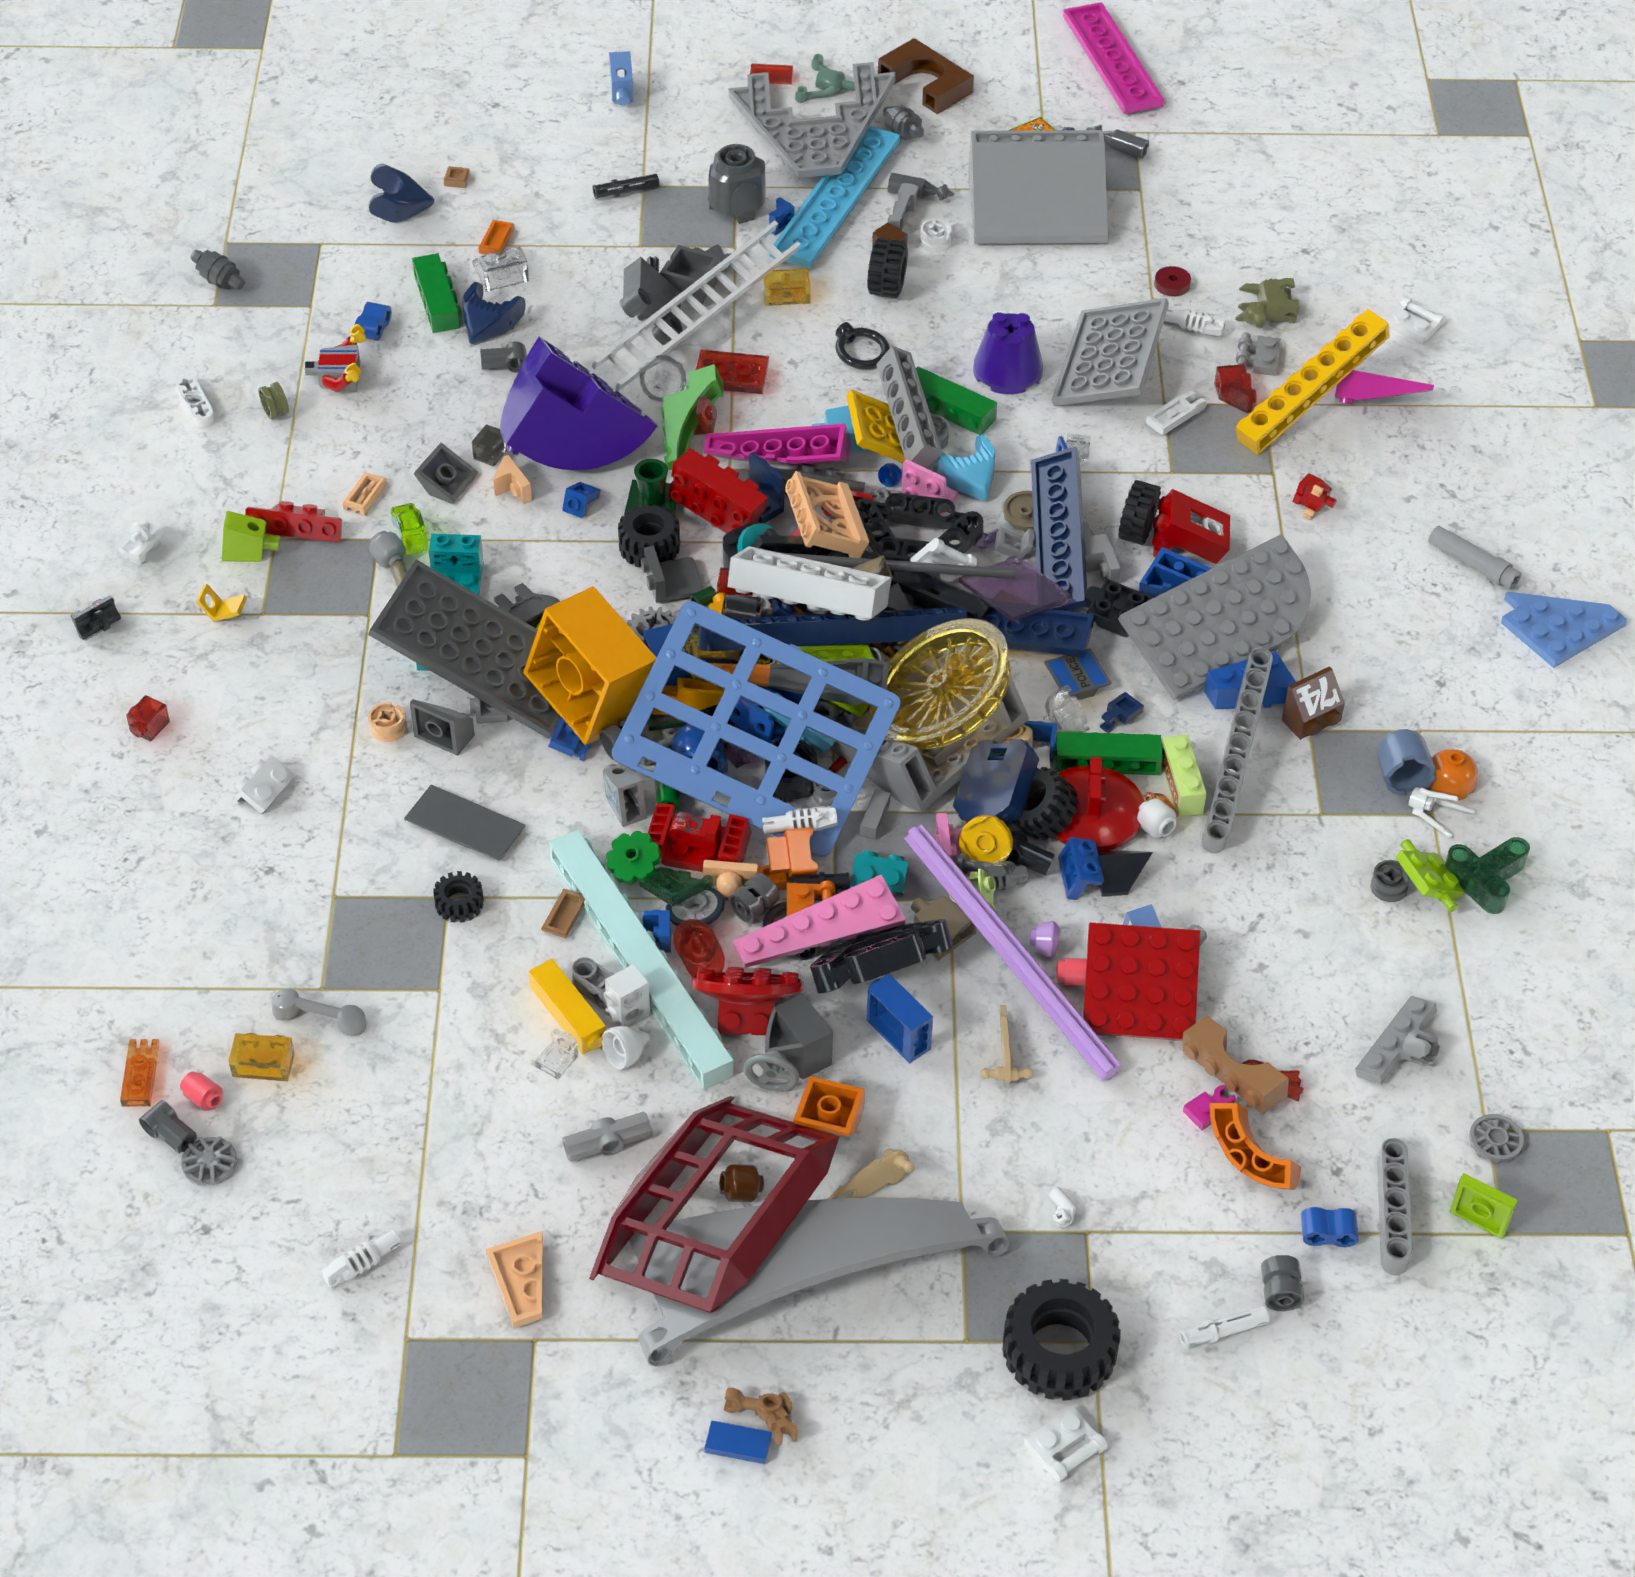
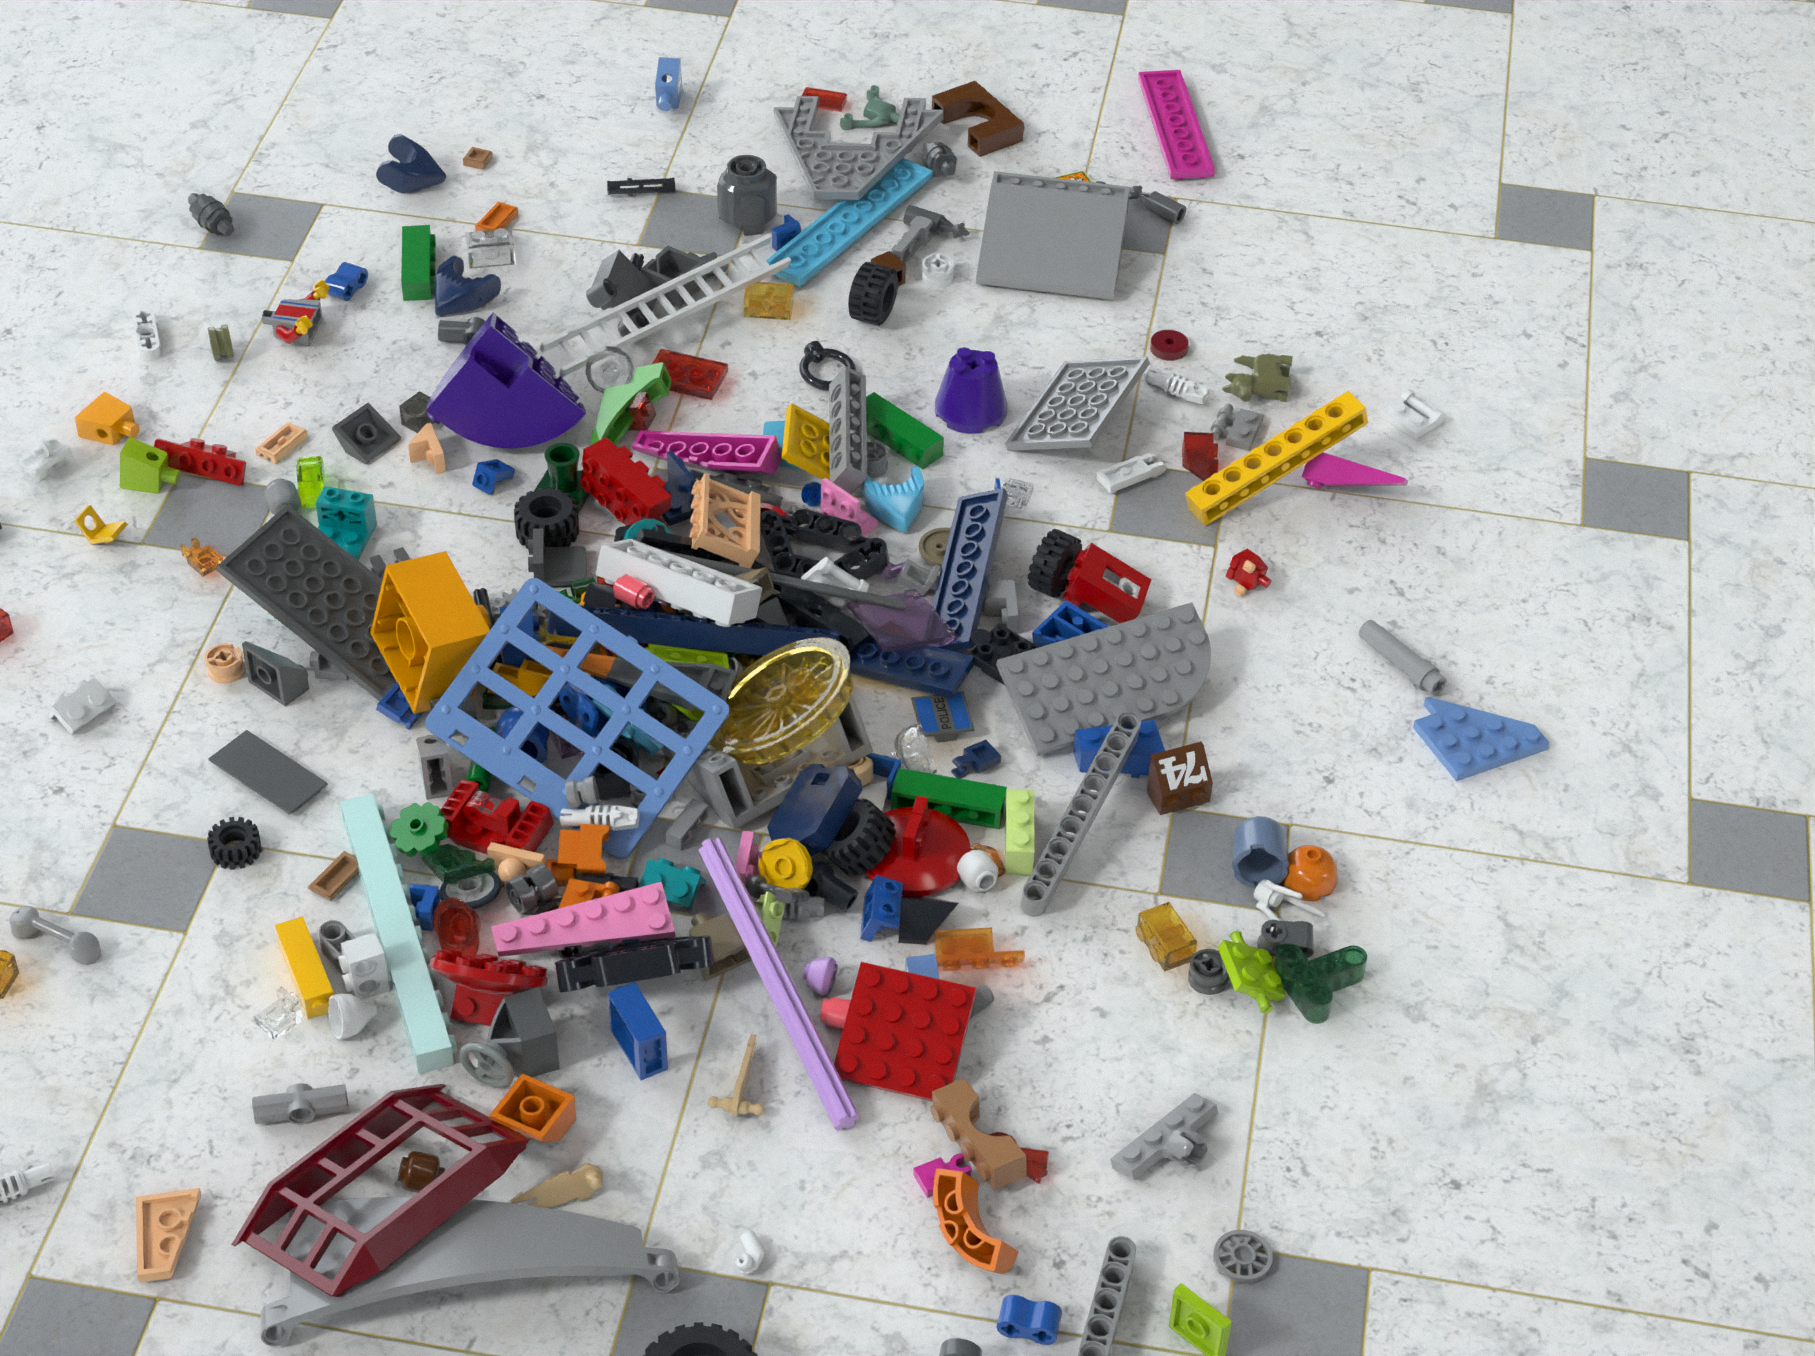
camera: 10 degrees right, 5 degrees down
(188, 495) = (106, 420): none -> light orange torso
(330, 622) = (203, 559): none -> clear orange plate
(772, 599) = (633, 592): none -> coral brick
(784, 798) = (581, 792): none -> light grey wheel
(1171, 892) = (971, 947): none -> clear orange bracket
(1343, 854) = (1166, 936): none -> clear yellow brick
(1448, 836) = (1297, 933): none -> dark grey piece

